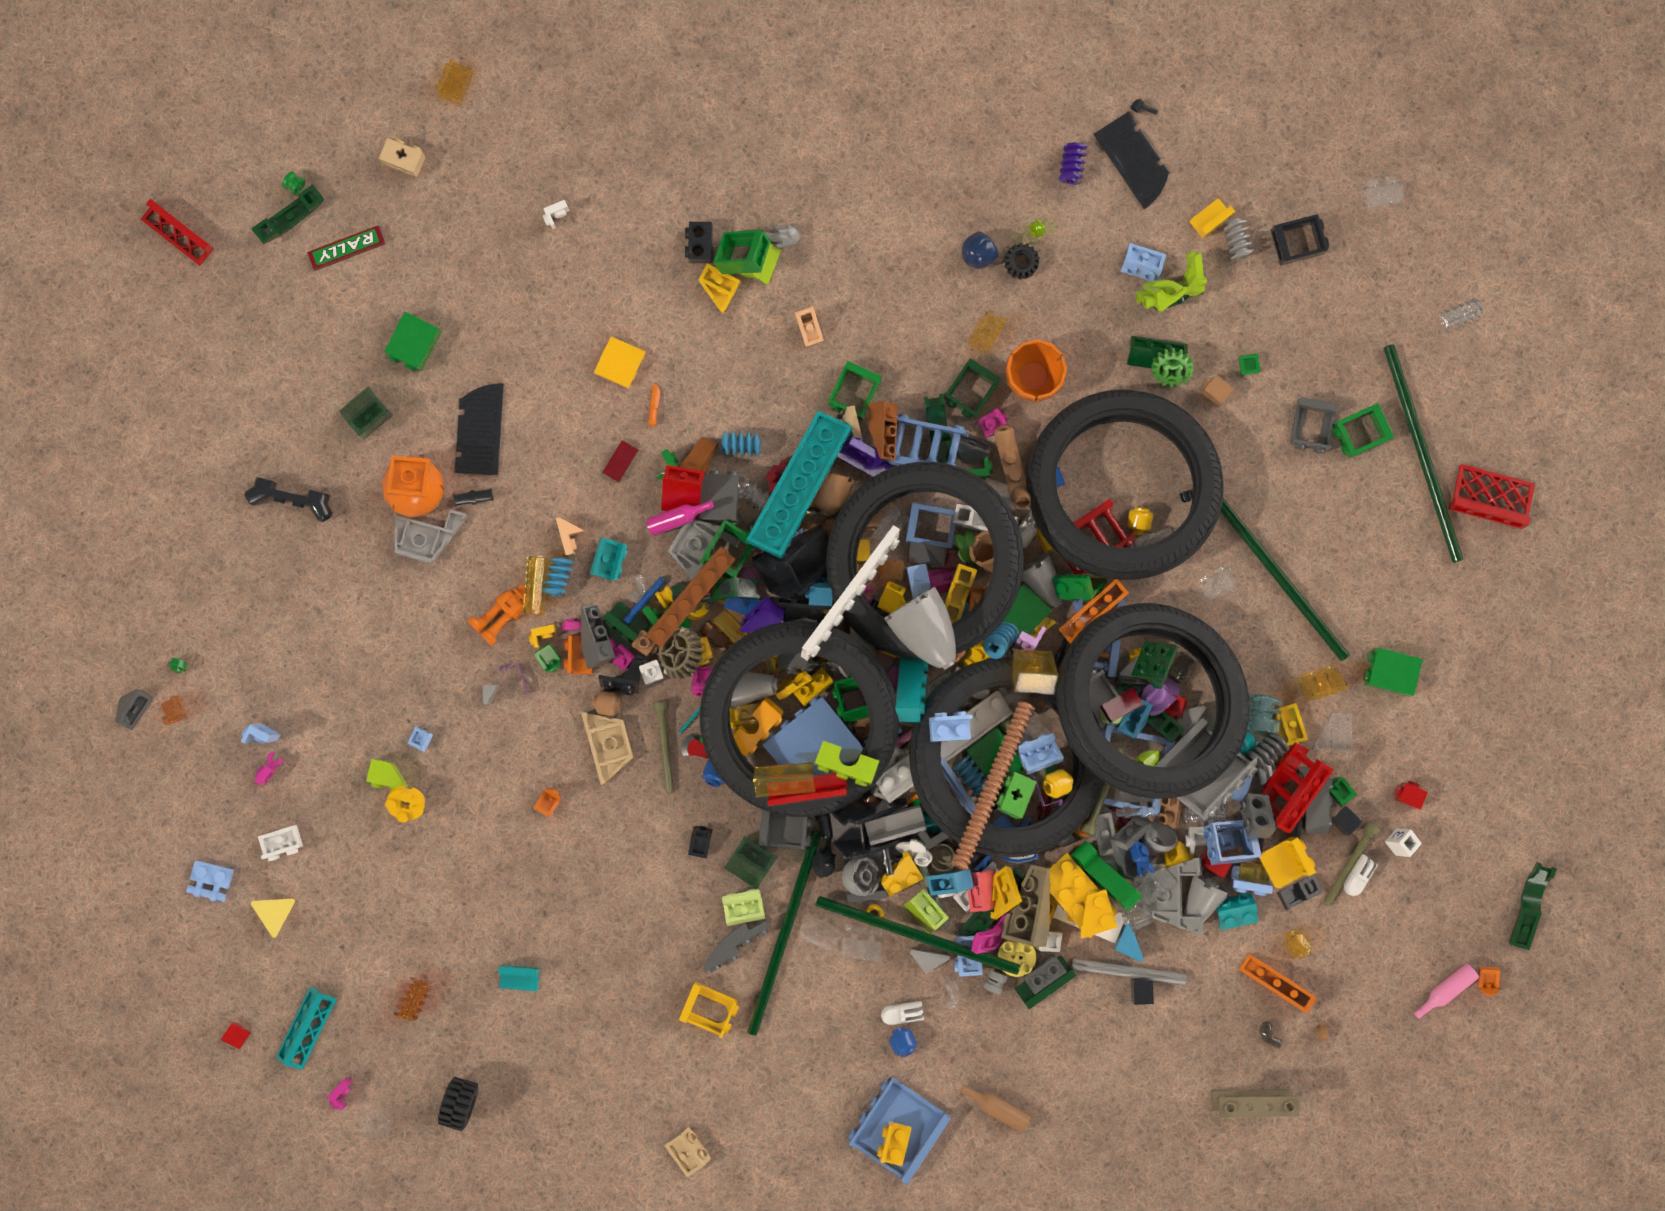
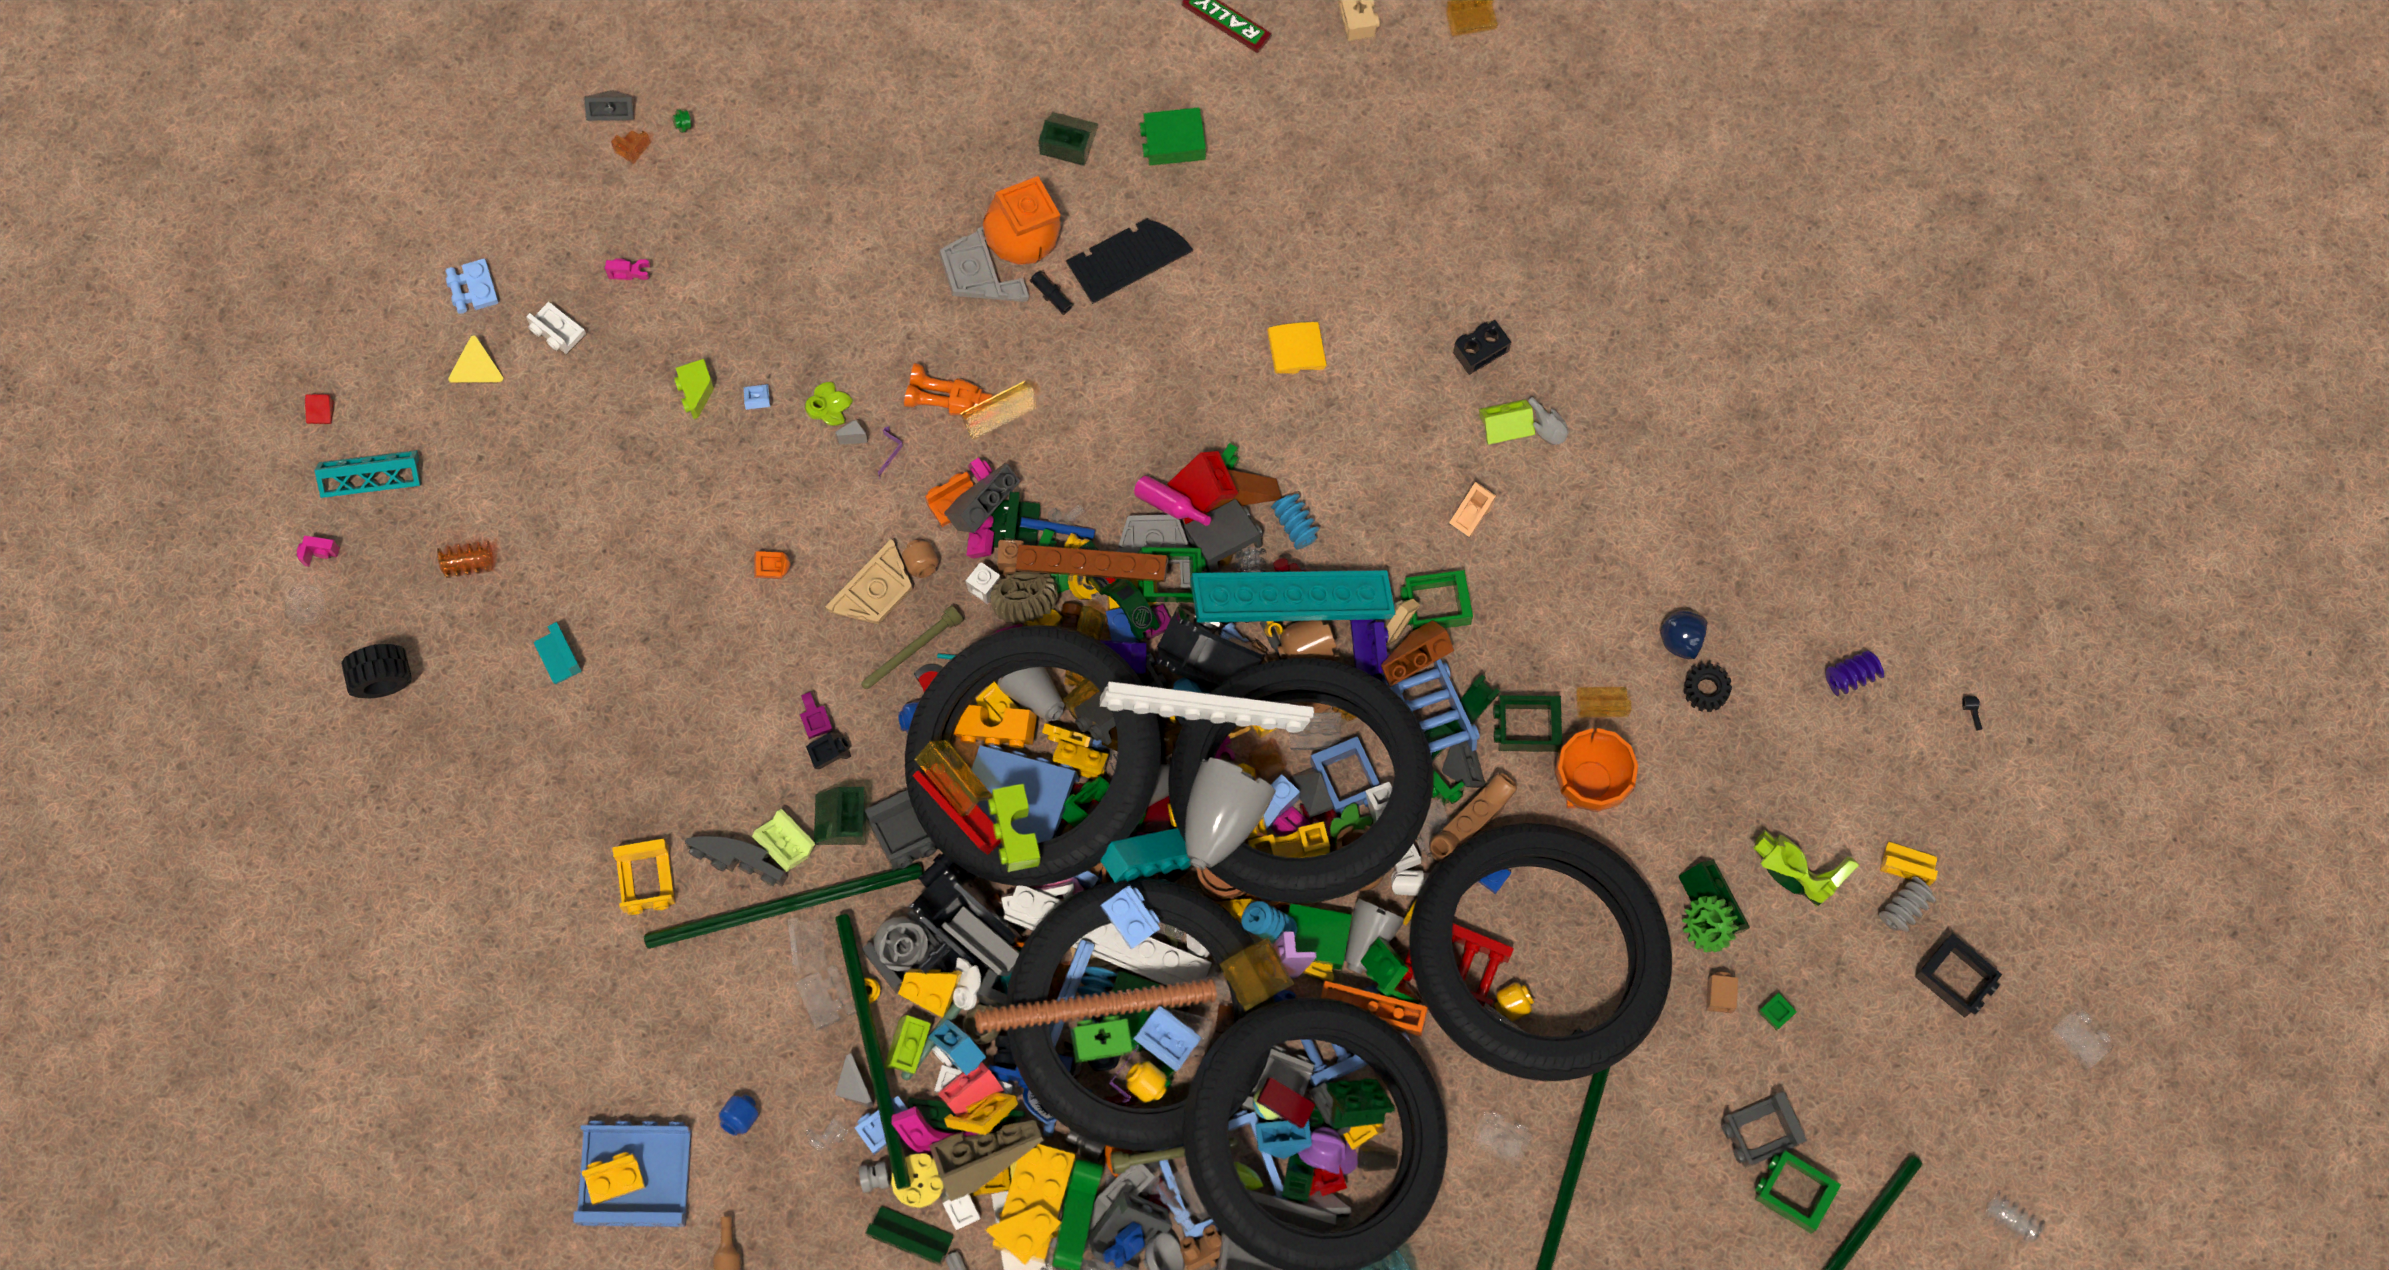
camera: 55 degrees right, 15 degrees down
(259, 733) = (658, 234): light blue bracket -> none
(266, 488) = (923, 92): black plate -> none
(405, 812) = (665, 422): yellow plate -> none
(456, 691) = (831, 404): none -> lime plate
(545, 632) = (955, 448): yellow bracket -> none
(548, 658) = (929, 470): green plate -> none
(556, 210) = (1410, 187): white bracket -> none
(557, 576) = (1023, 424): dark azure piece -> none
(566, 531) = (1077, 405): light nougat slope -> none
(609, 559) = (1077, 464): teal bracket -> none
(620, 461) = (1191, 413): dark red tile -> none
(628, 683) = (956, 564): black plate -> none
(655, 397) = (1277, 409): orange piece -> none
(673, 838) = (815, 719): none -> magenta plate
(688, 1152) = (467, 955): tan bracket -> none
(719, 286) = (1449, 395): yellow wing -> none
(753, 264) = (1518, 399): green window -> none
(824, 860) = (890, 896): black piece -> none
(902, 1013) = (766, 1088): white arm -> none
(991, 421) = (1509, 767): dark pink bracket -> none
(1037, 228) = (1755, 683): clear neon green plate -> none
(1044, 974) = (918, 1225): dark grey brick -> none
(1134, 158) = (1910, 738): black piece -> none
(1143, 262) = (1803, 819): light blue bracket -> none

